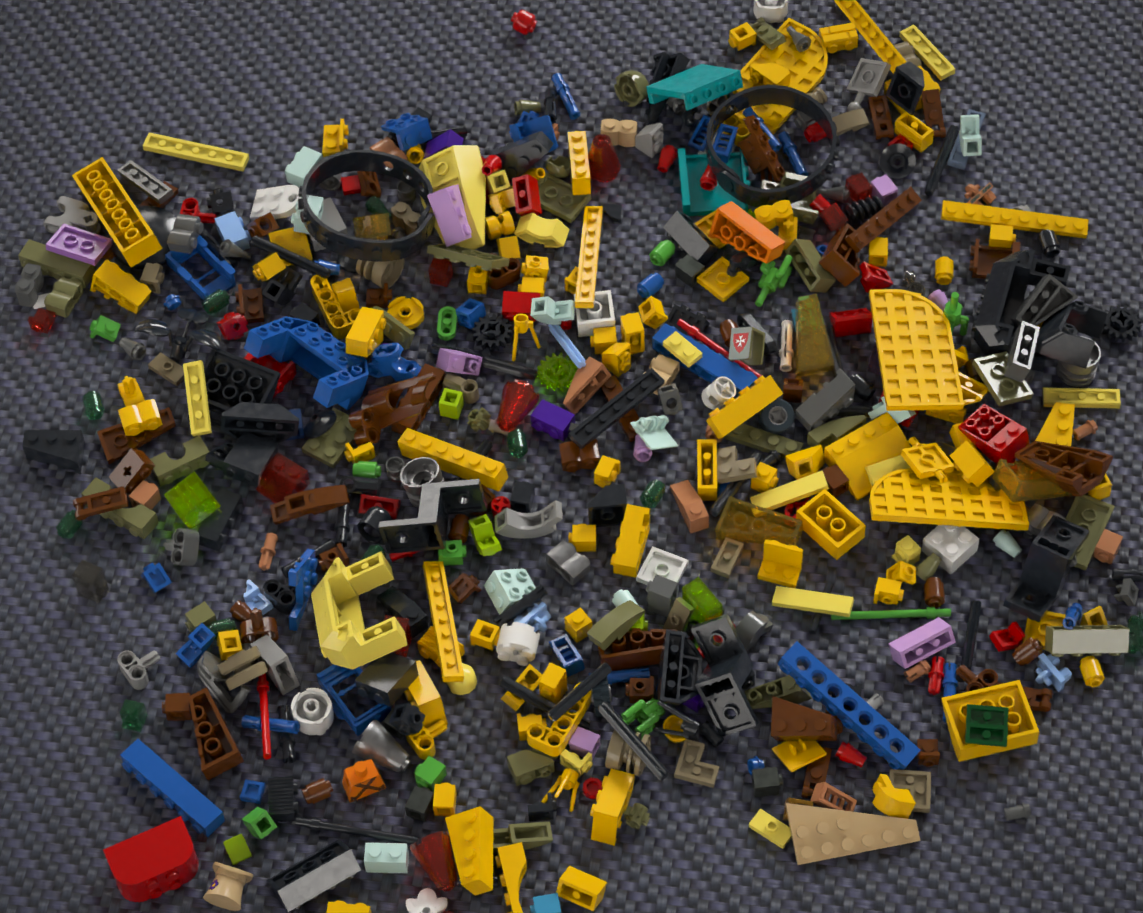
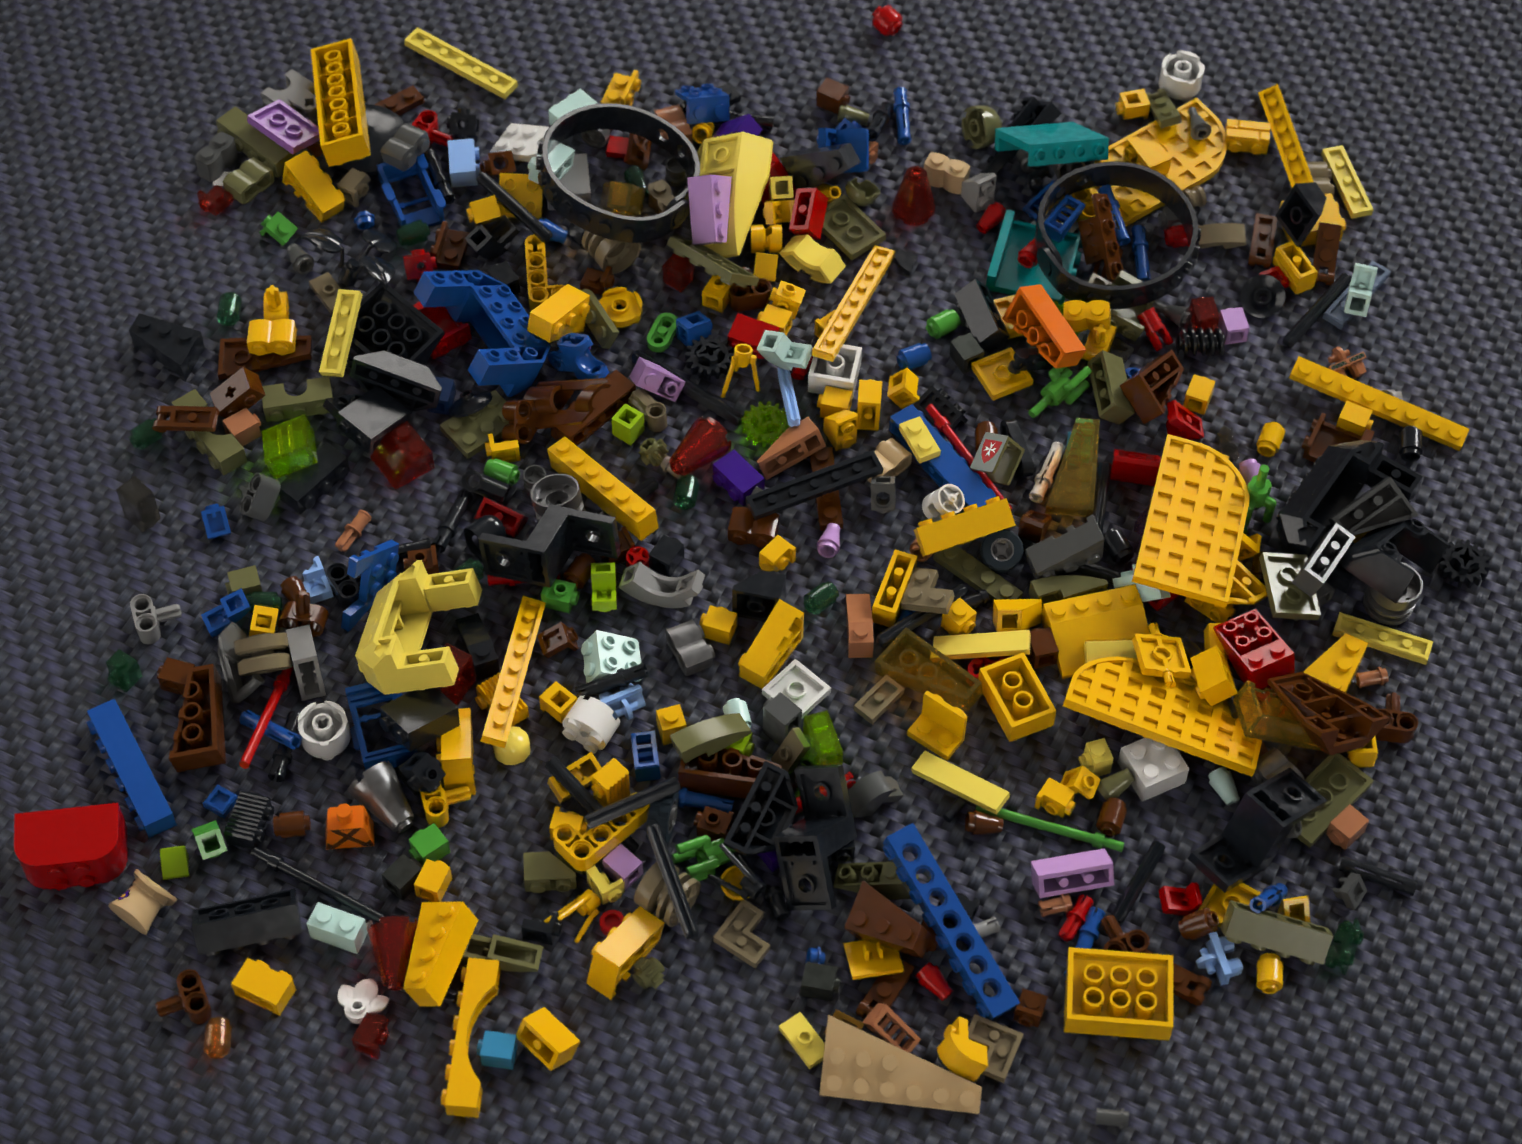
camera: 15 degrees right, 0 degrees up
(145, 182) = (390, 80): dark grey plate -> none
(229, 249) = (450, 179): dark grey cone -> none
(309, 501) = (421, 487): reddish brown slope -> none
(345, 294) = (558, 266): yellow beam -> none
(491, 165) = (780, 167): red cone -> none
(505, 95) = (832, 95): none -> reddish brown brick
(579, 163) = (884, 193): yellow arch -> none
(653, 432) = (850, 527): light aqua hinge -> none
(833, 217) = (1159, 338): clear red brick -> none
(839, 627) = (982, 823): none -> reddish brown cone
(867, 80) = (1261, 193): light grey plate -> none
(883, 219) = (1217, 358): reddish brown plate -> none
(986, 725) = (1110, 998): dark green slope -> none
(1116, 465) = (1392, 730): none -> reddish brown beam

